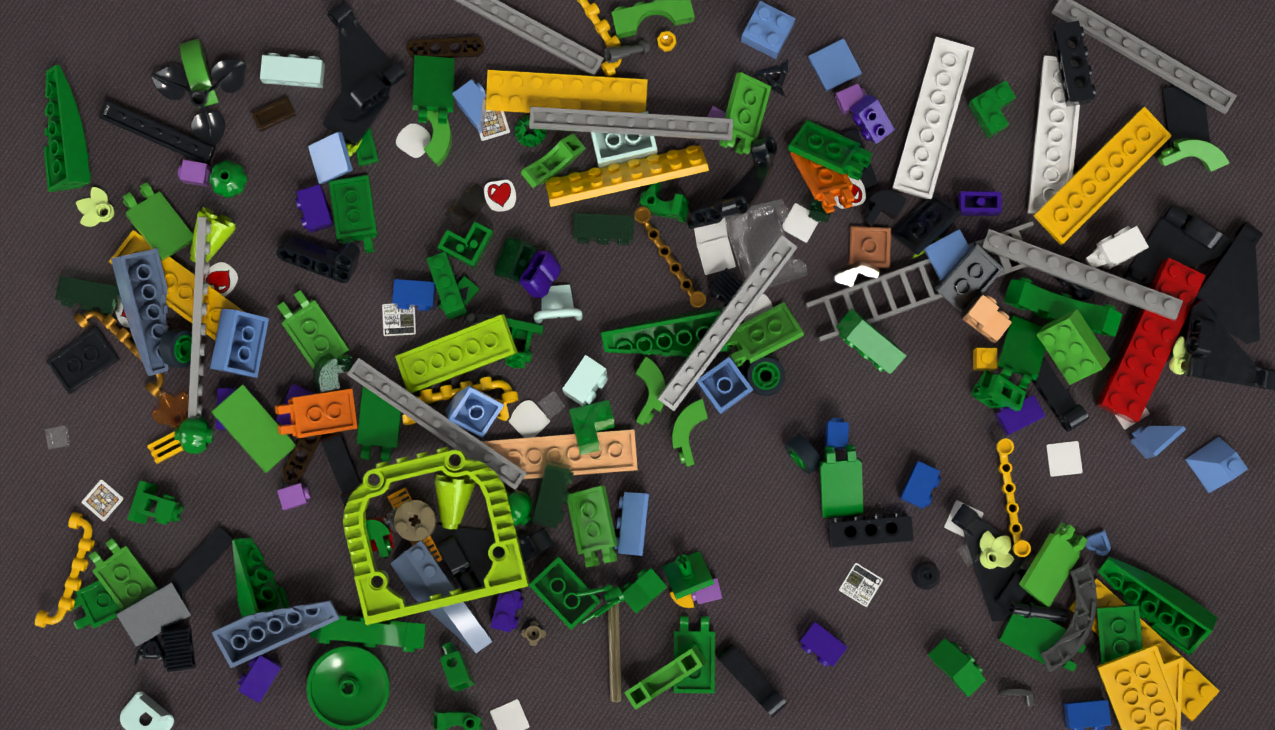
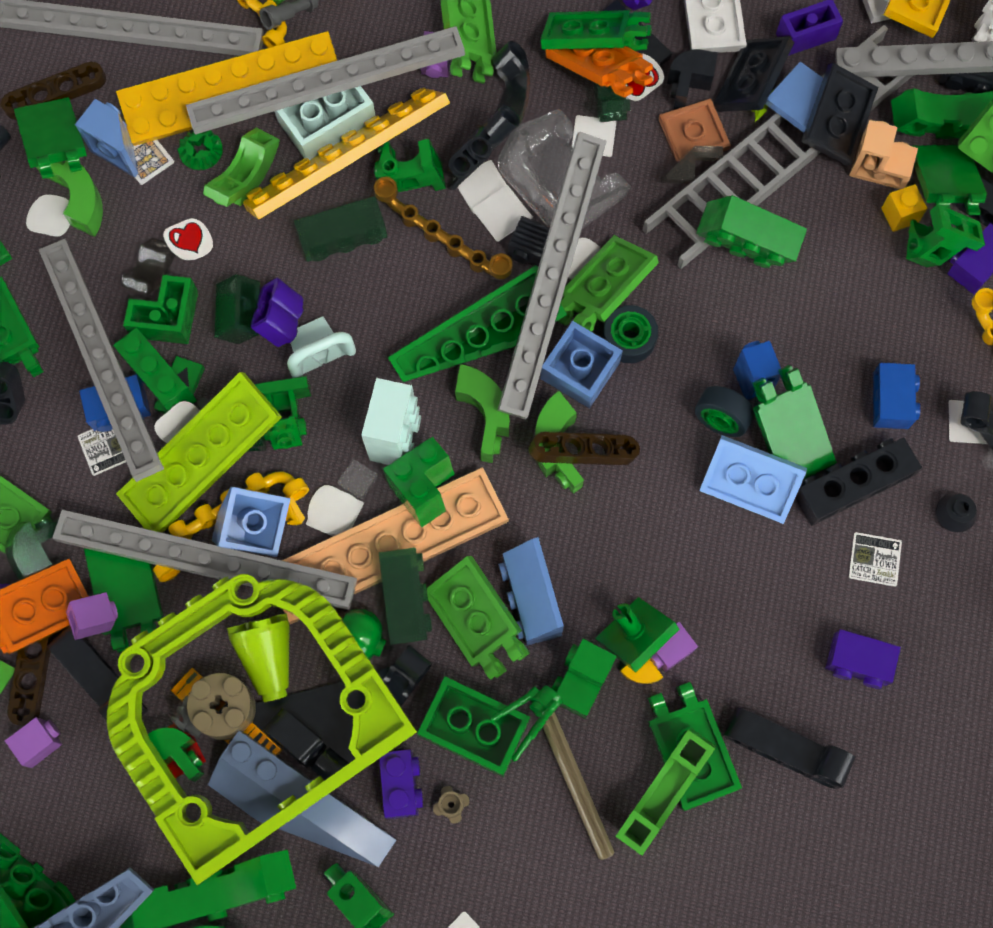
camera: 20 degrees left, 10 degrees down
(354, 433) = (91, 615): none -> medium lavender brick
(415, 262) = (101, 361): none -> light grey plate
(450, 324) = (175, 420): none -> white sticker
(704, 441) = (584, 443): none -> dark brown beam
(802, 505) = (753, 479): none -> light blue plate

